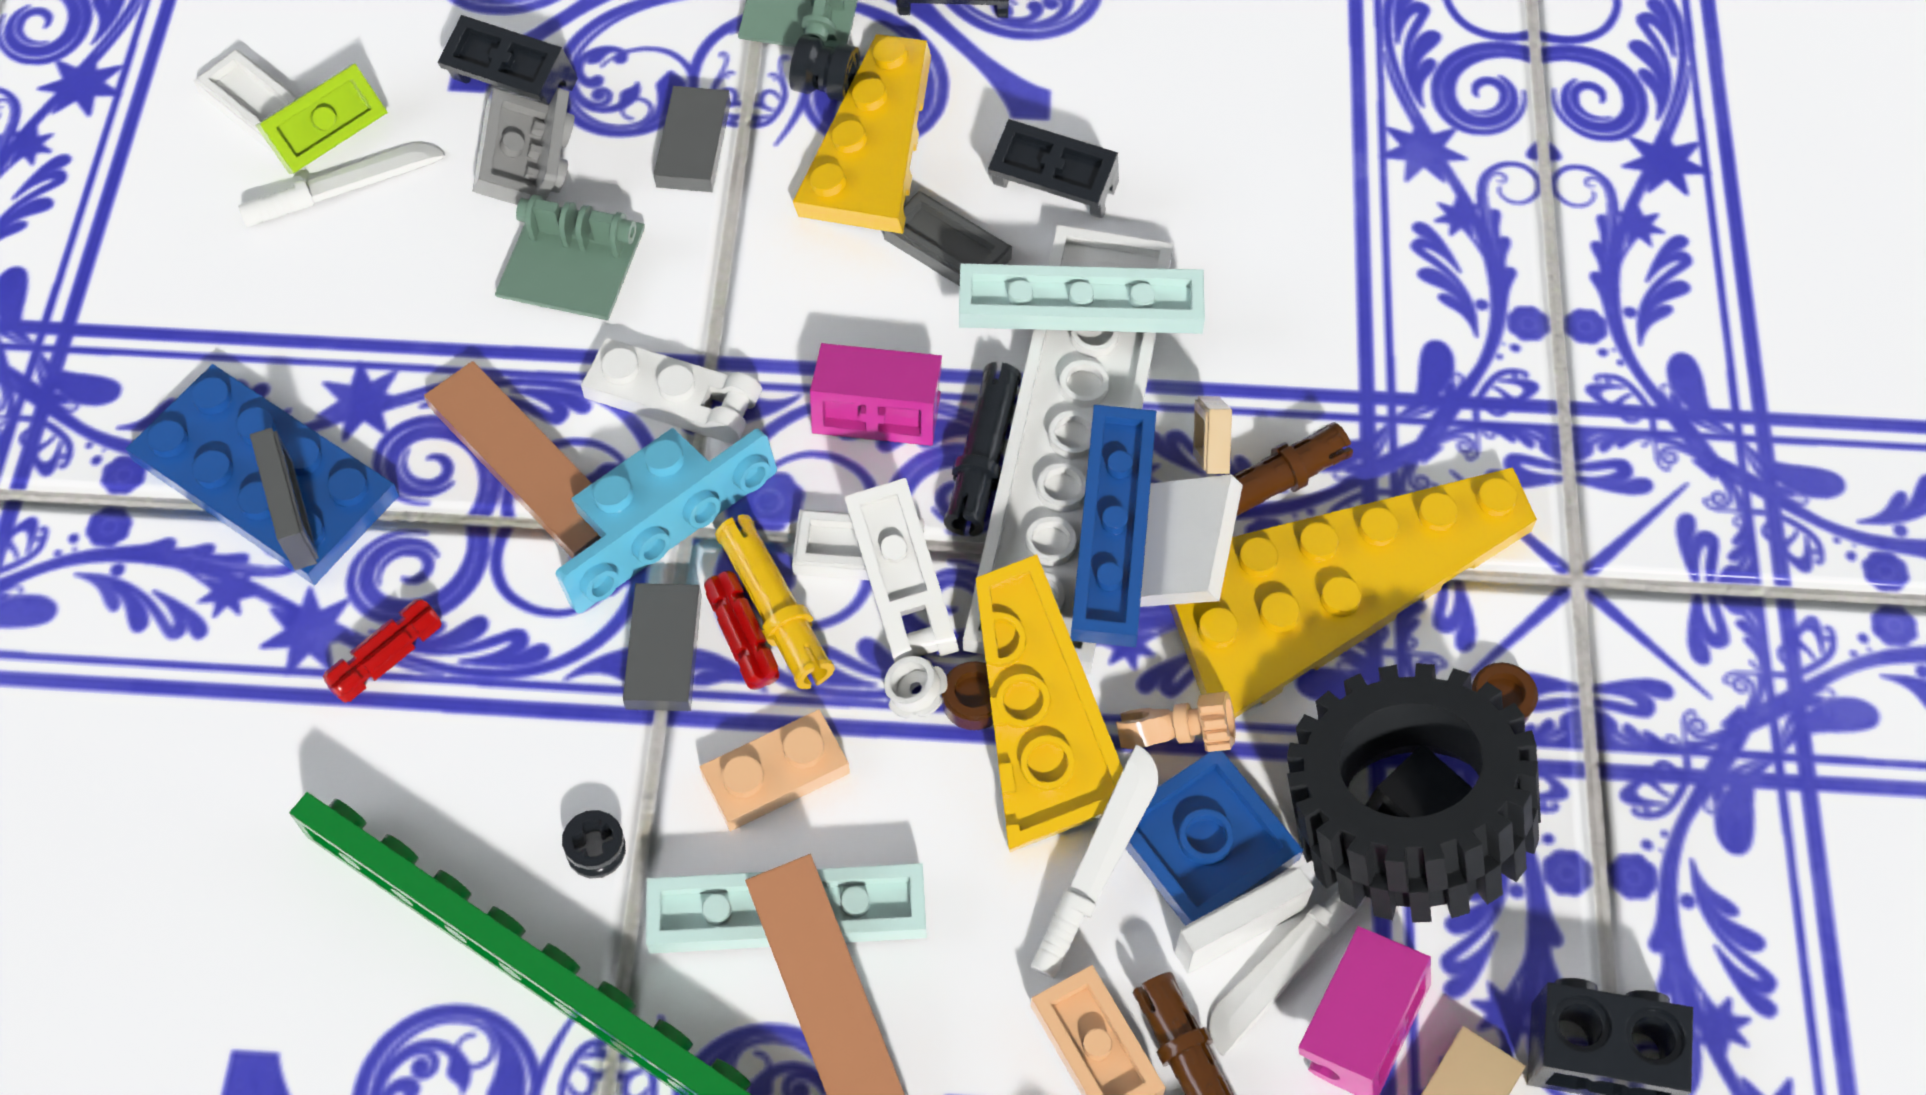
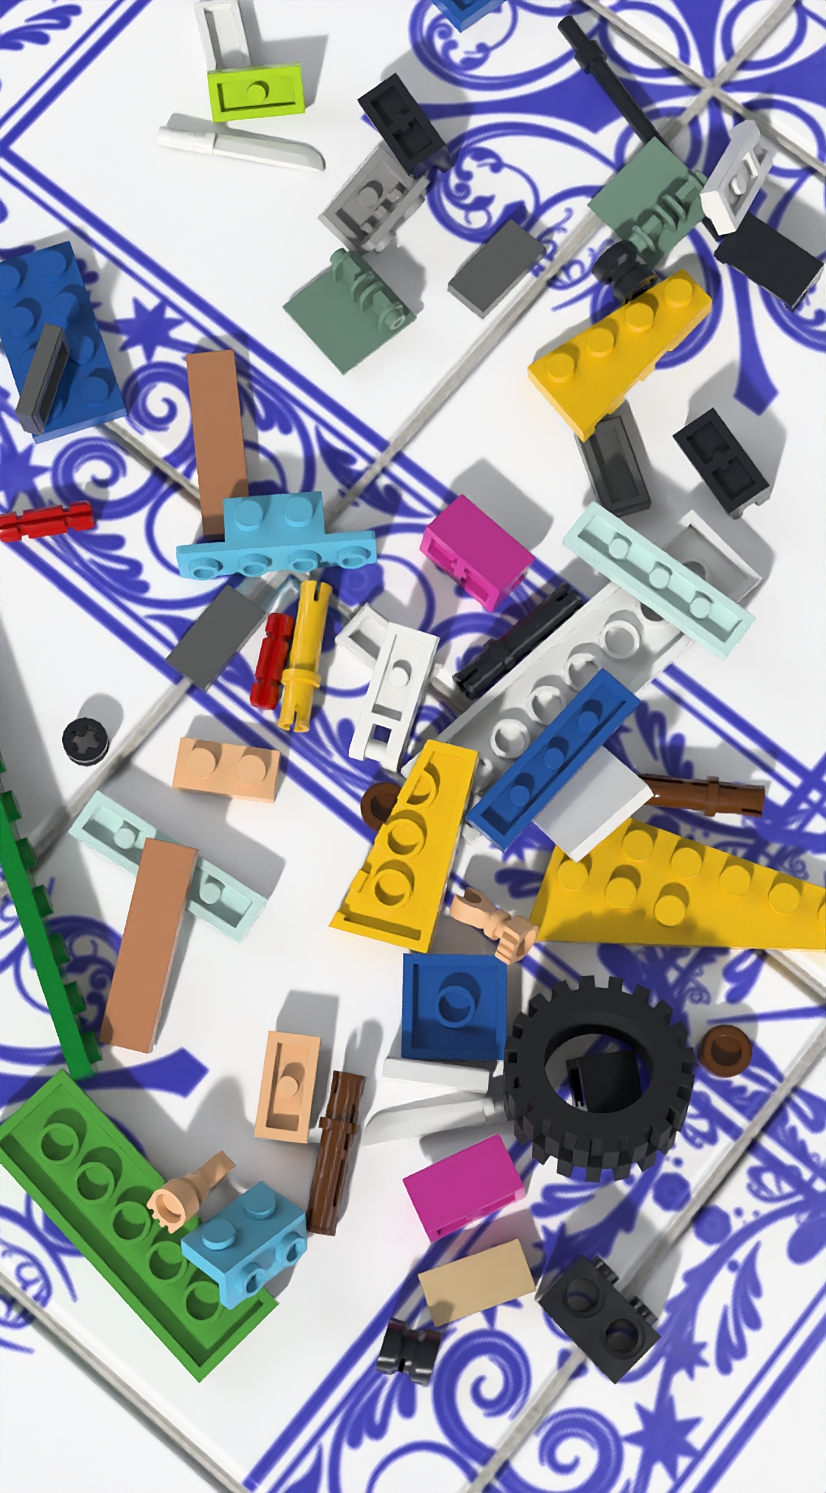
camera: 35 degrees right, 15 degrees up
(670, 390) = (346, 456): white plate -> none
(904, 677) = (343, 768): white plate -> none
(1116, 826) = (394, 965): white piece -> none
(1212, 434) = (665, 743): tan tile -> none

